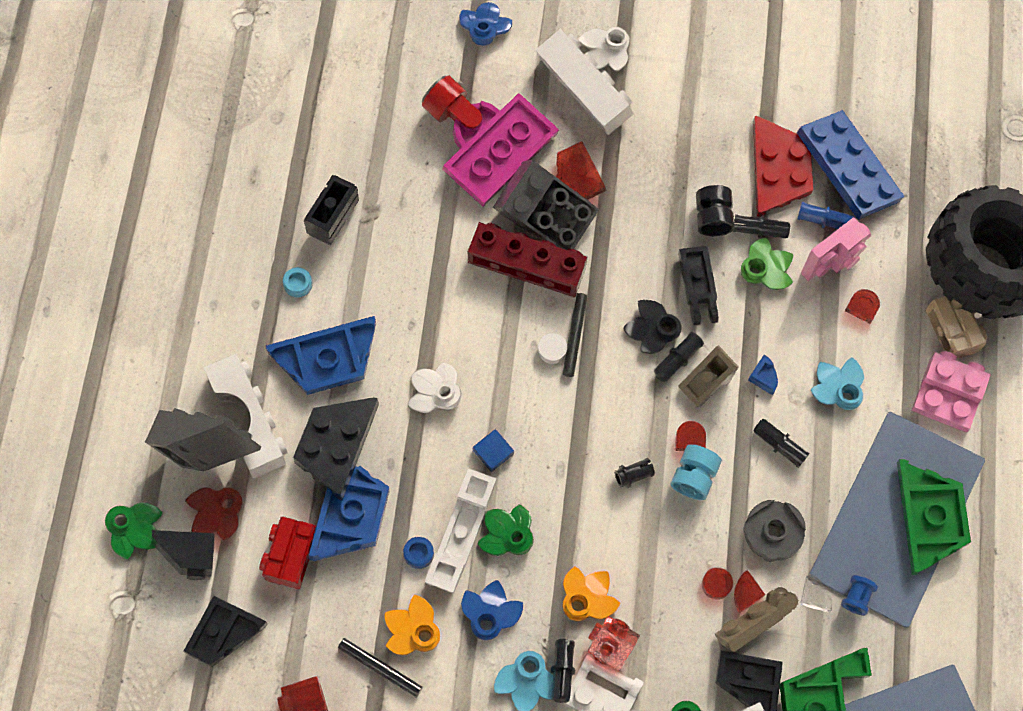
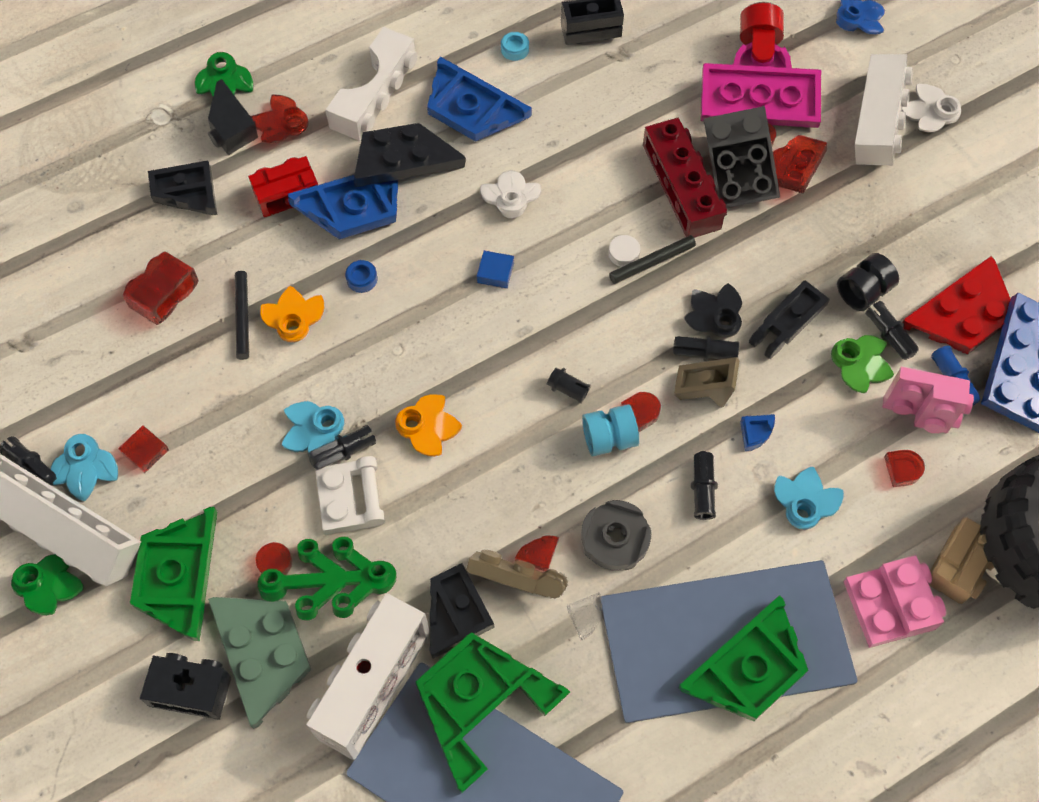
camera: 55 degrees right, 5 degrees down
(199, 440) = (317, 56): dark grey slope -> none
(461, 531) = (403, 294): white slope -> none
(490, 606) = (358, 360): blue plate -> none
(504, 528) = (432, 327): green plate -> none
(612, 642) = (396, 467): clear red brick -> none
(717, 583) = (526, 522): clear red tile -> none
(859, 595) = (624, 641): blue bush -> none

